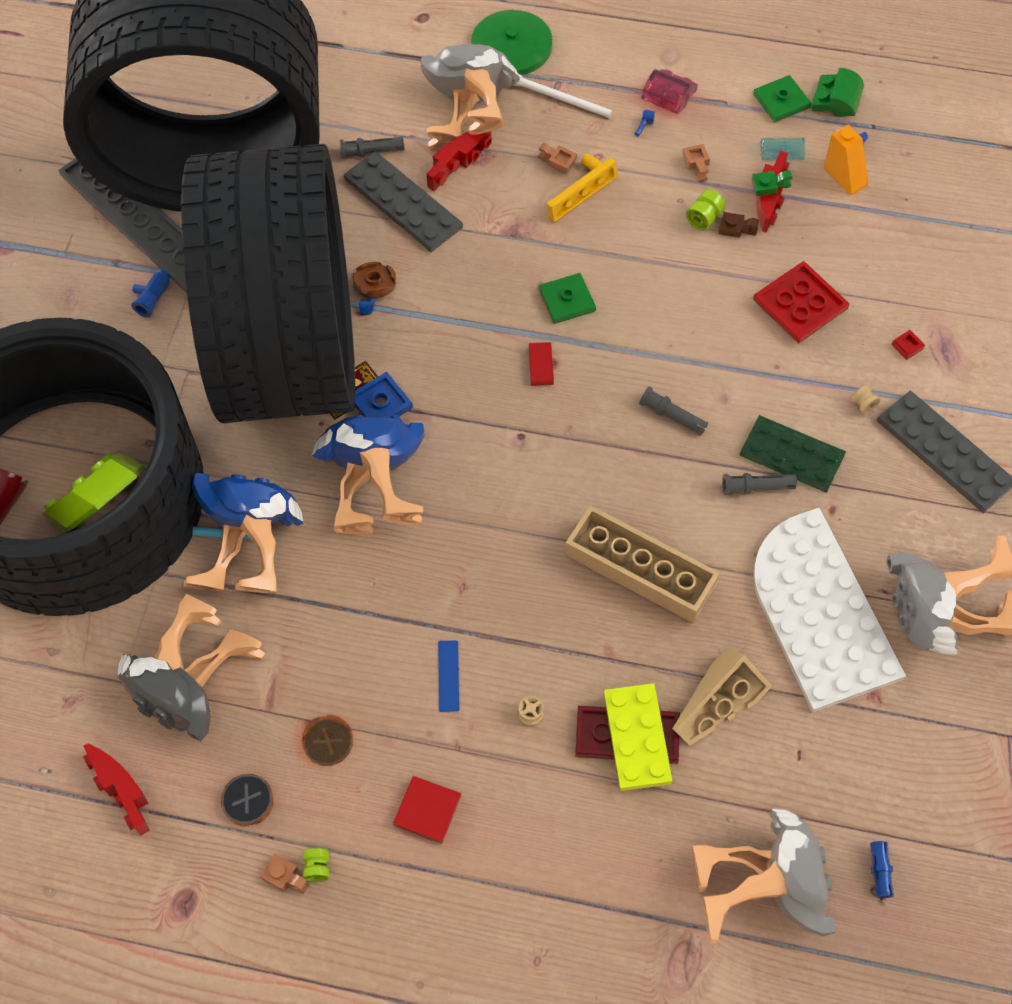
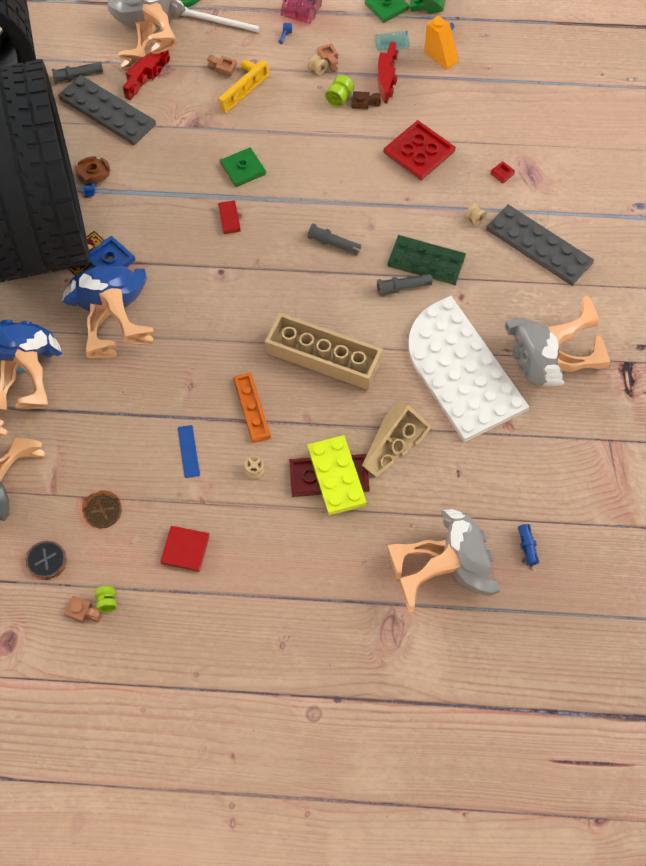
camera: 10 degrees left, 0 degrees up
(538, 628) = (252, 407): none -> orange tile
(681, 171) = (317, 64): none -> tan wheel
(767, 183) = (384, 66): green plate -> none

